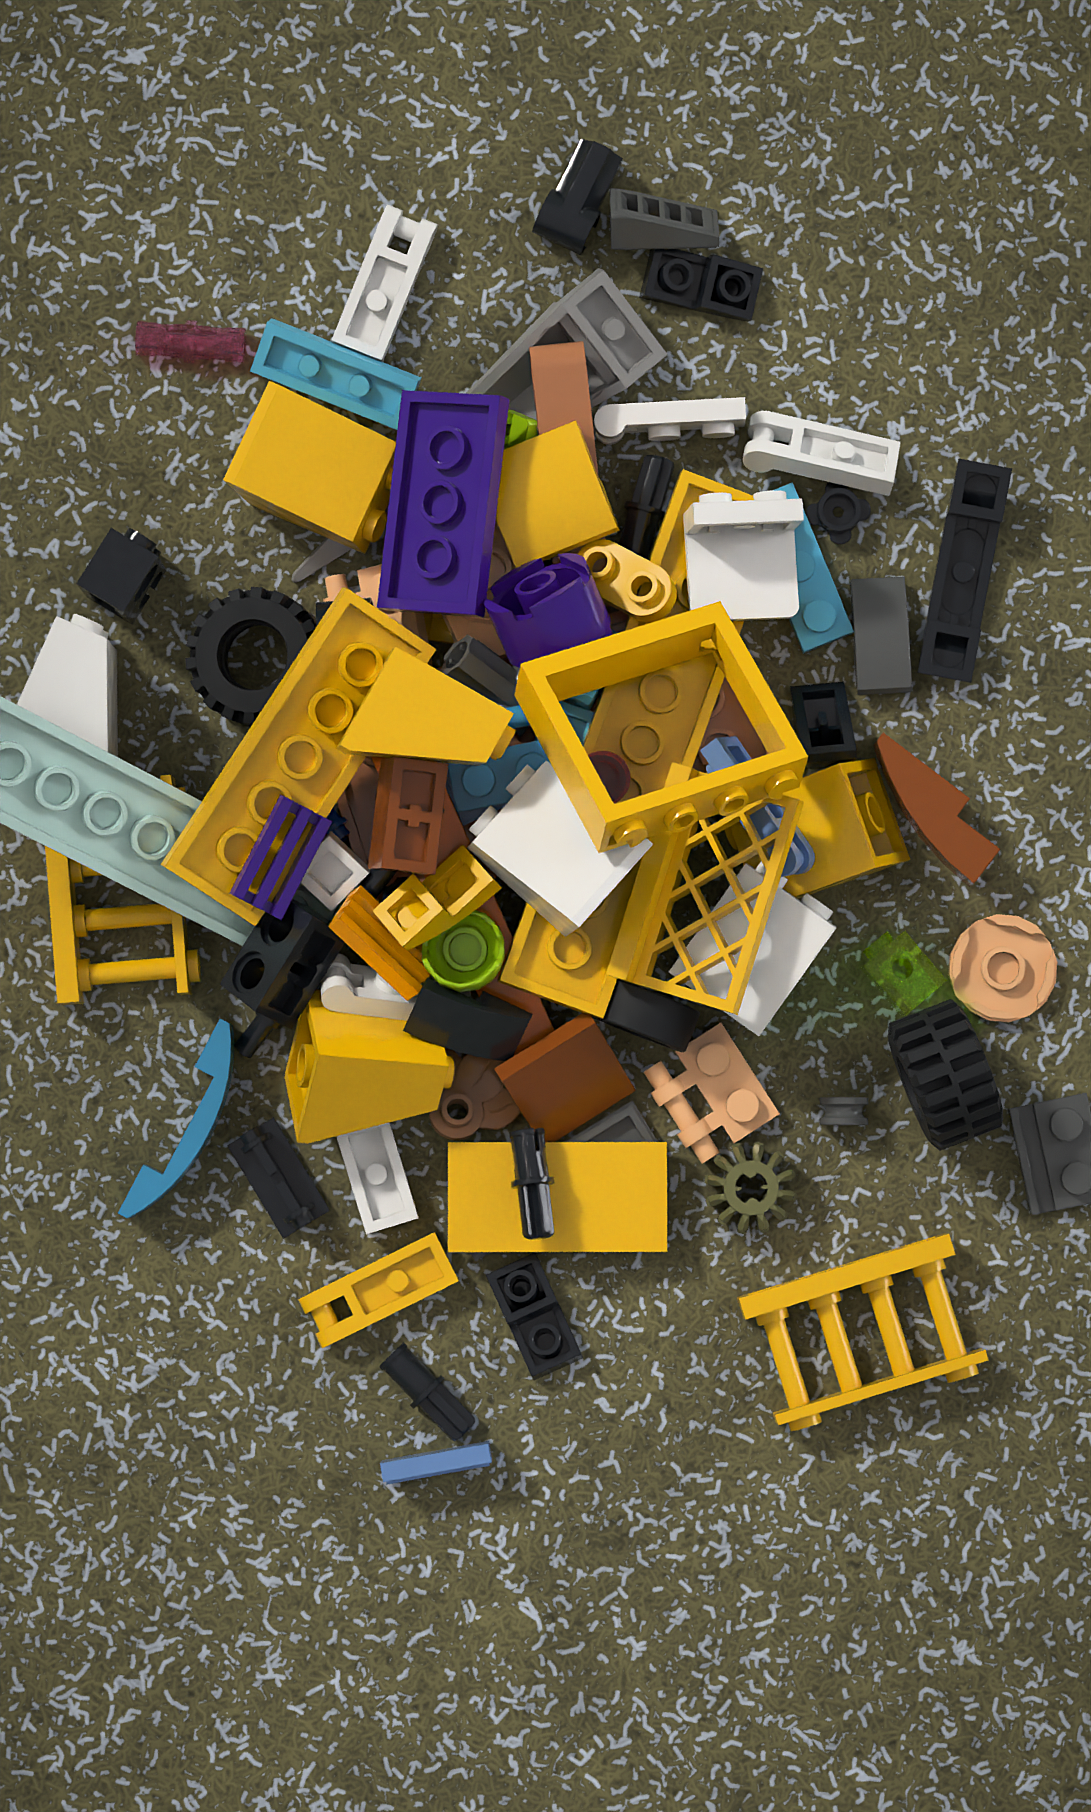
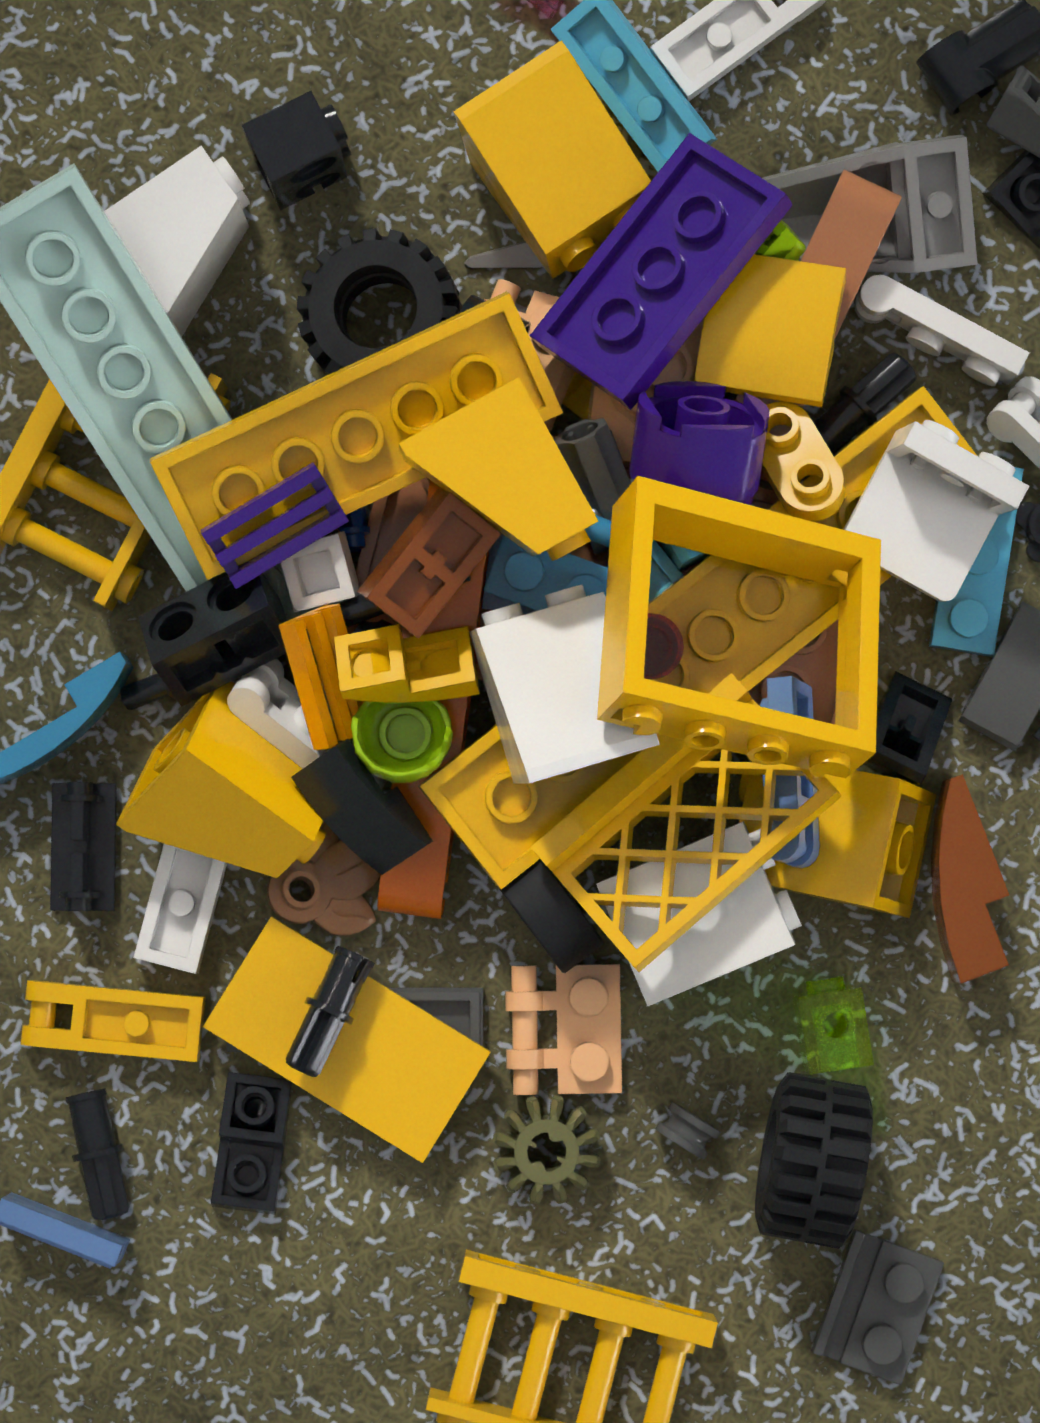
camera: 30 degrees right, 0 degrees up
(565, 1078) = (427, 925): dark orange tile -> none
(982, 976) = (913, 1076): light nougat tile -> none

